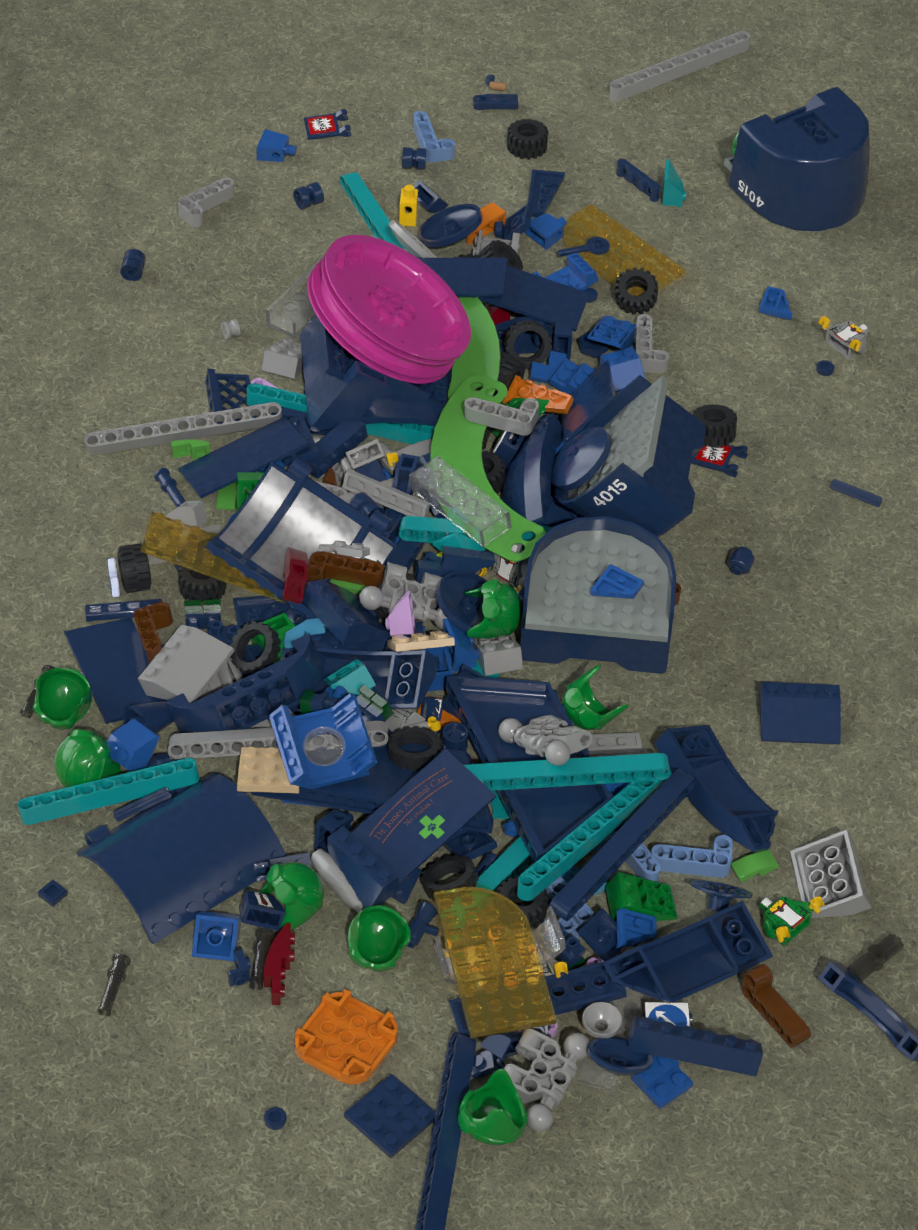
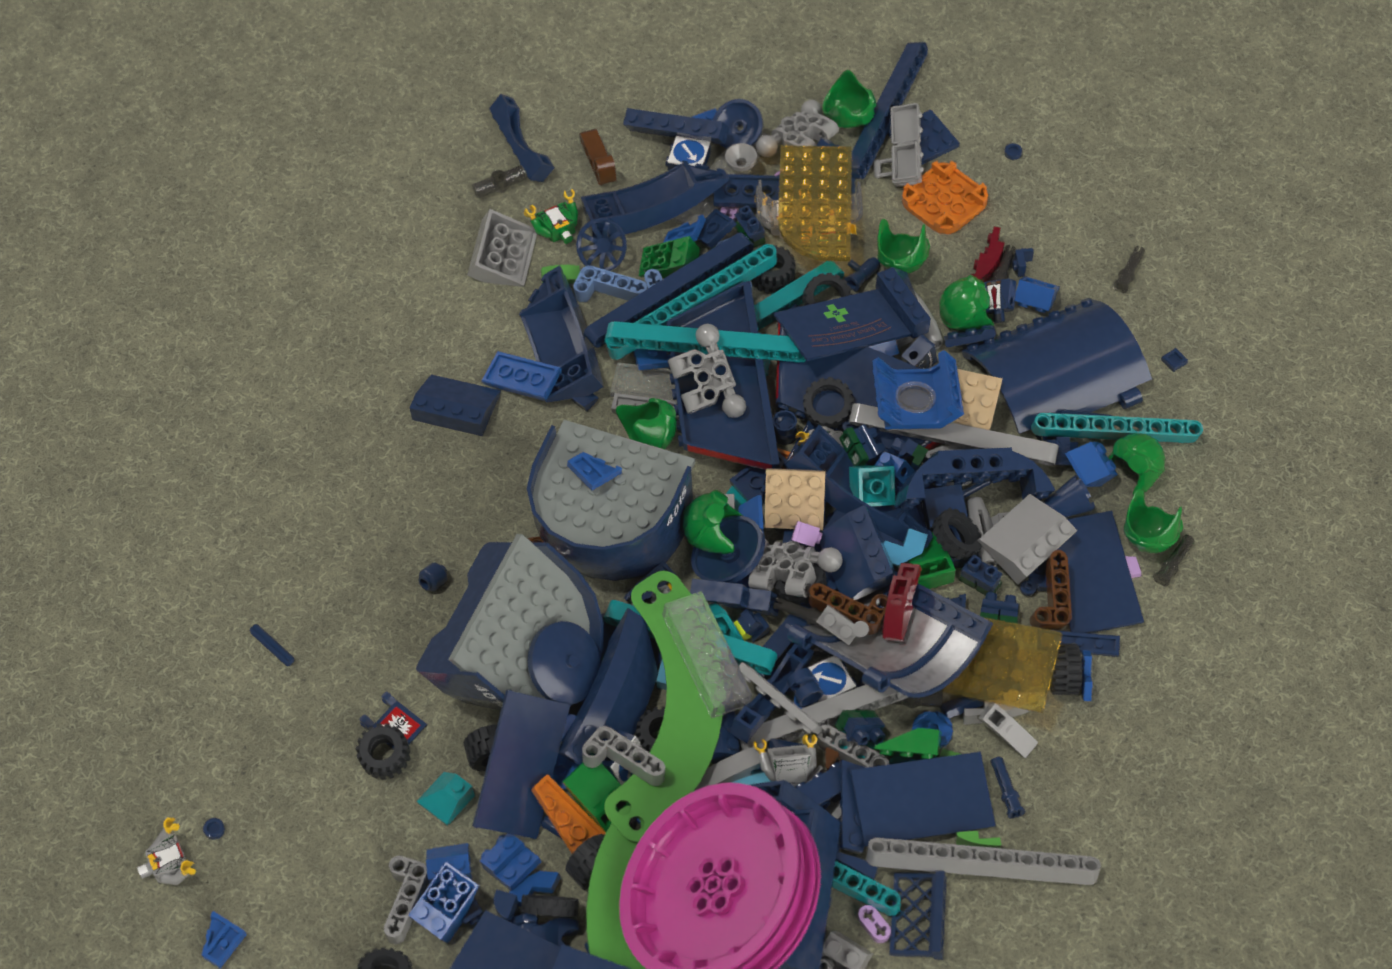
camera: 160 degrees left, 10 degrees up
(407, 1076) = (905, 148): none -> light grey piece
(744, 745) = (521, 376): none -> blue tile

